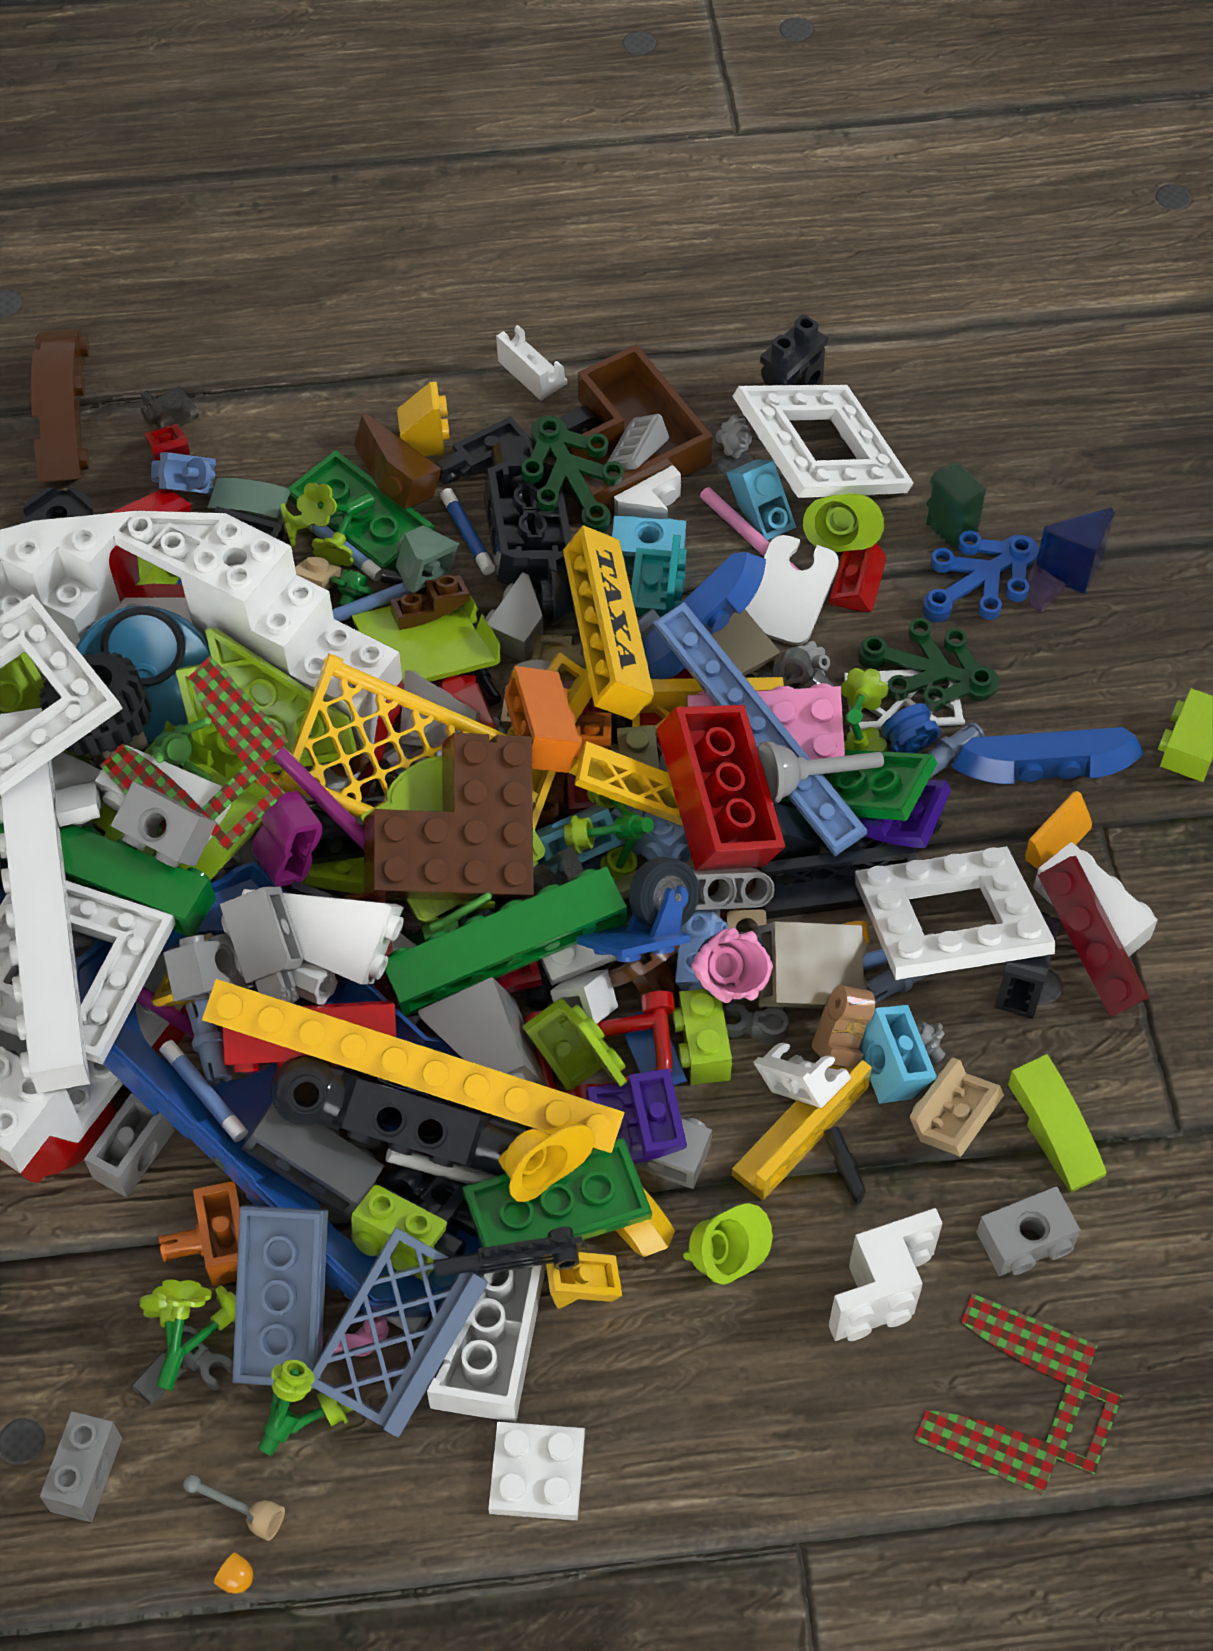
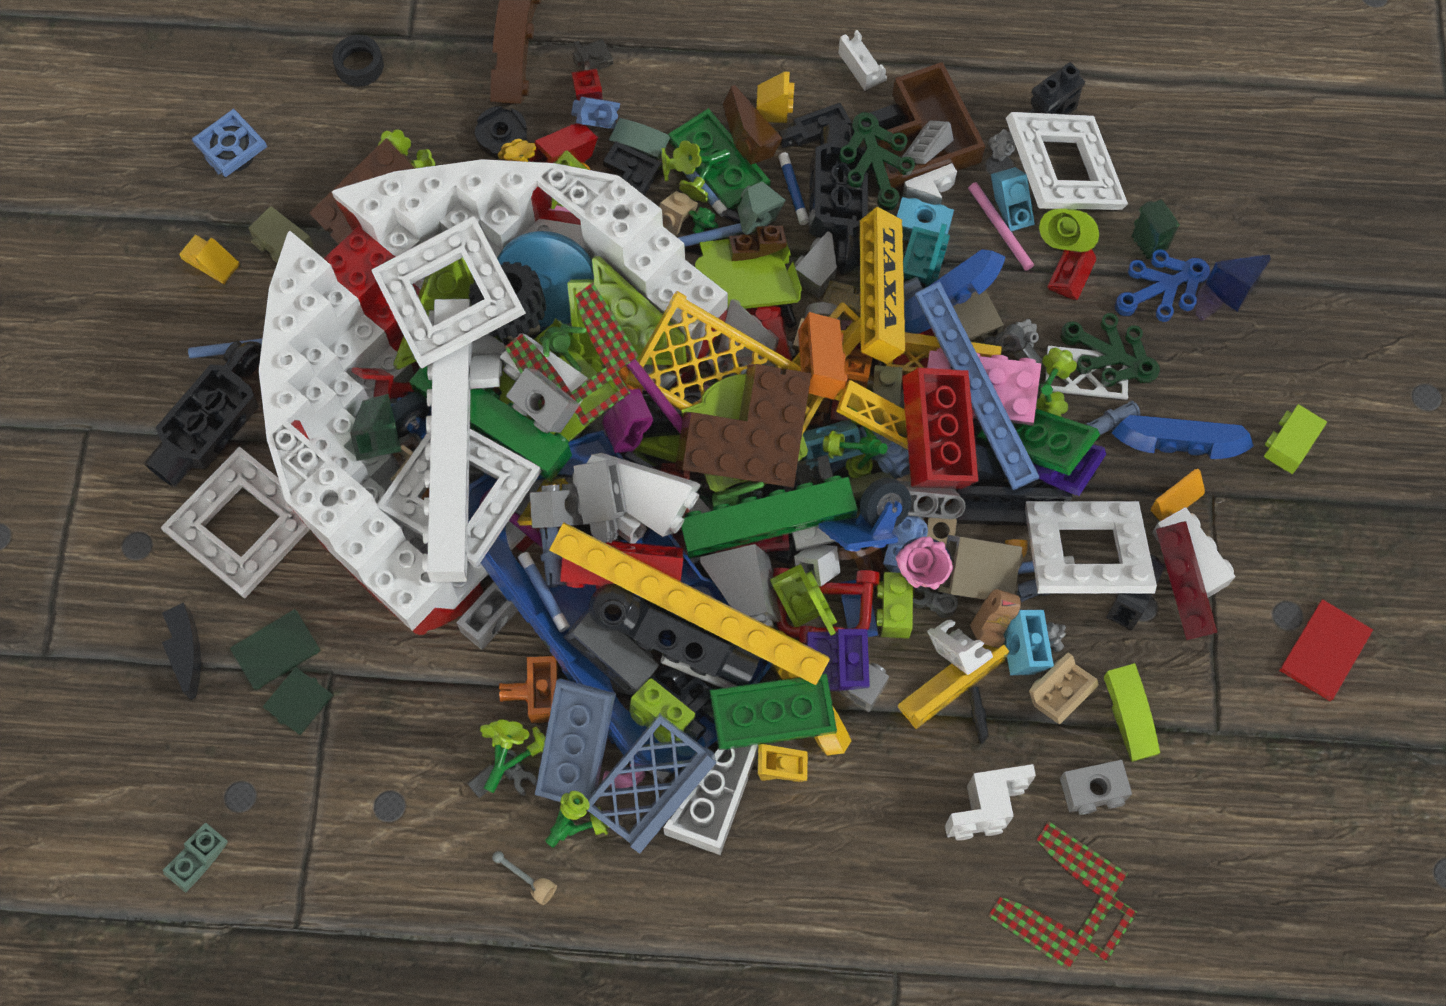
camera: 10 degrees right, 10 degrees up
(81, 1466) = (426, 833): light grey brick -> none
(104, 641) = (524, 246): black tyre -> none
(234, 1575) = (518, 924): light orange hinge -> none
(537, 1471) = (729, 890): white plate -> none
(543, 1157) = (768, 681): yellow piece -> none
(558, 1248) = (768, 746): black piece -> none
(730, 1243) = (887, 758): lime piece -> none
(786, 770) = (989, 424): light grey piece -> none
(792, 598) = (1020, 279): white piece -> none
(910, 729) = (1086, 400): blue wheel -> none

